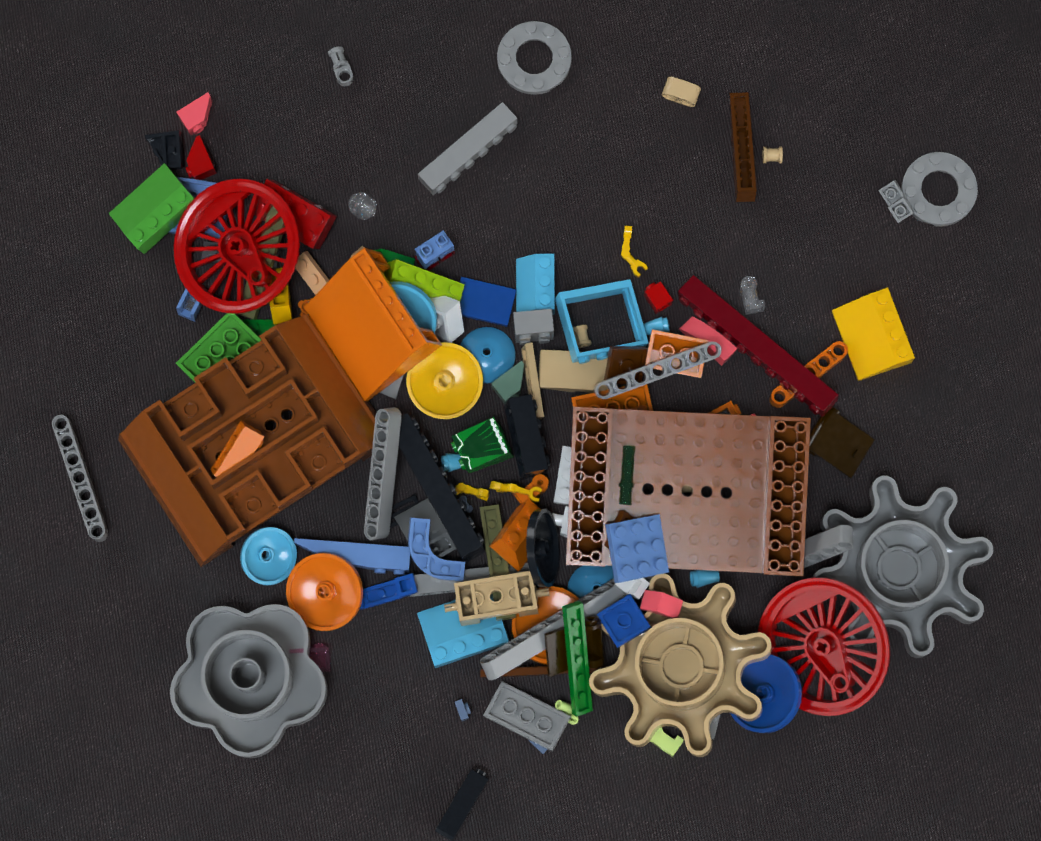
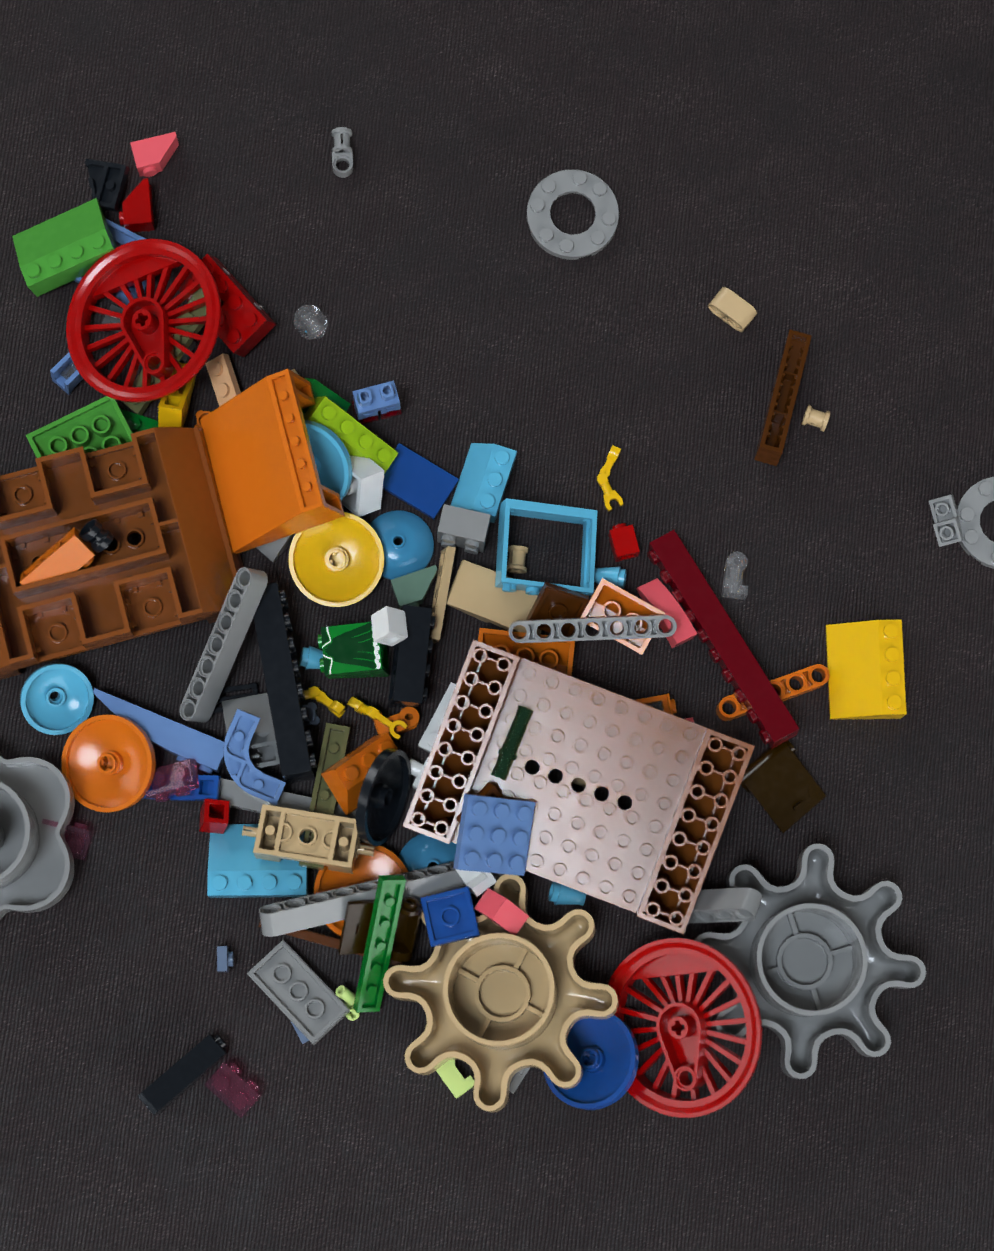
camera: 10 degrees right, 0 degrees up
(260, 421) = (96, 535): none -> black wheel
(379, 587) = (174, 780): none -> clear pink bracket
(418, 605) = (214, 816): none -> red brick
(467, 149) = (458, 295): light grey brick -> none
(502, 804) = (233, 1089): none -> clear pink bracket
(504, 418) = (389, 626): none -> white panel

